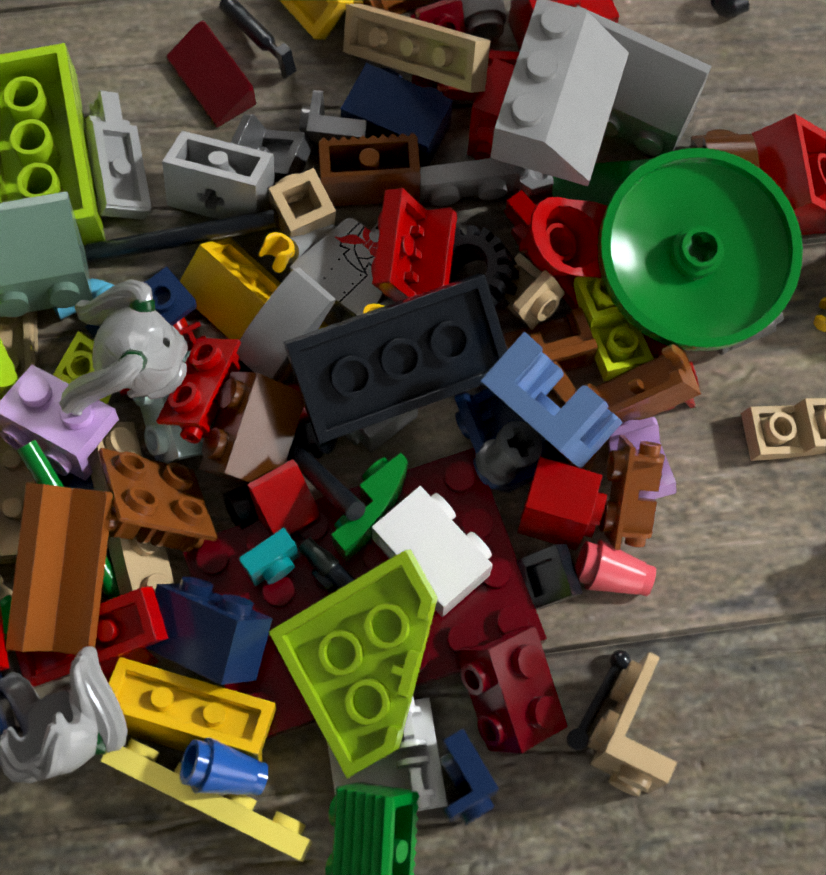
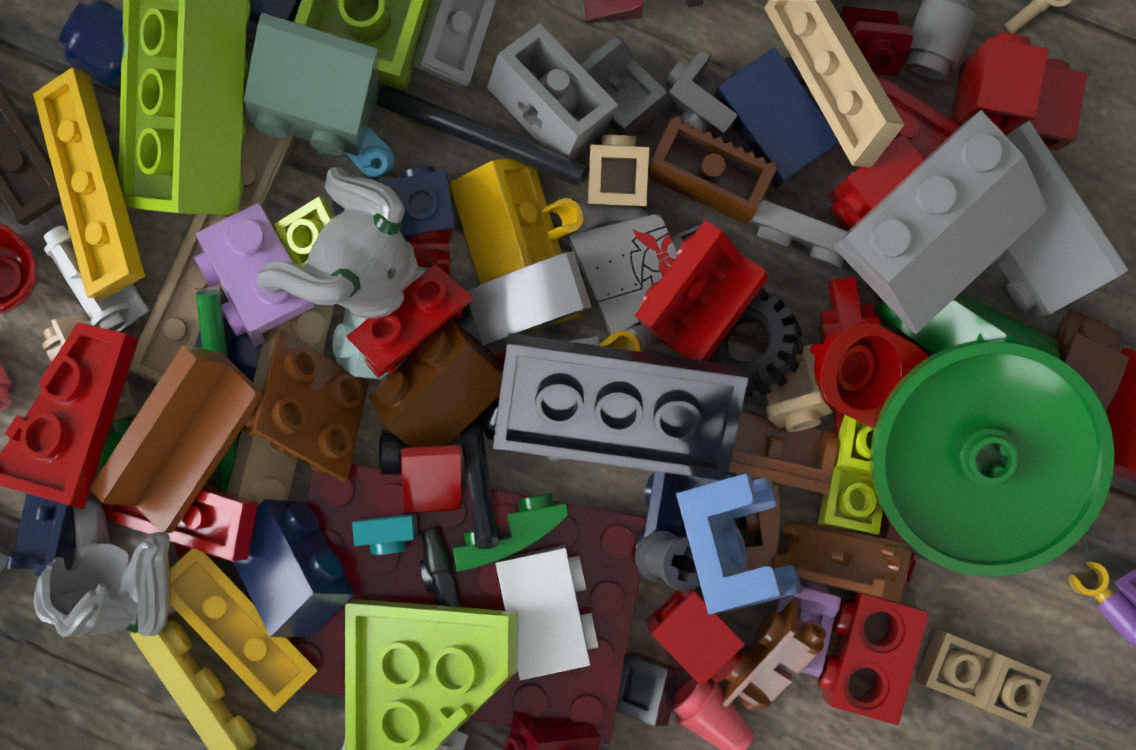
camera: 25 degrees right, 15 degrees up
(220, 769) = (232, 707): blue cone -> none
(720, 452) = (889, 658): none -> red brick

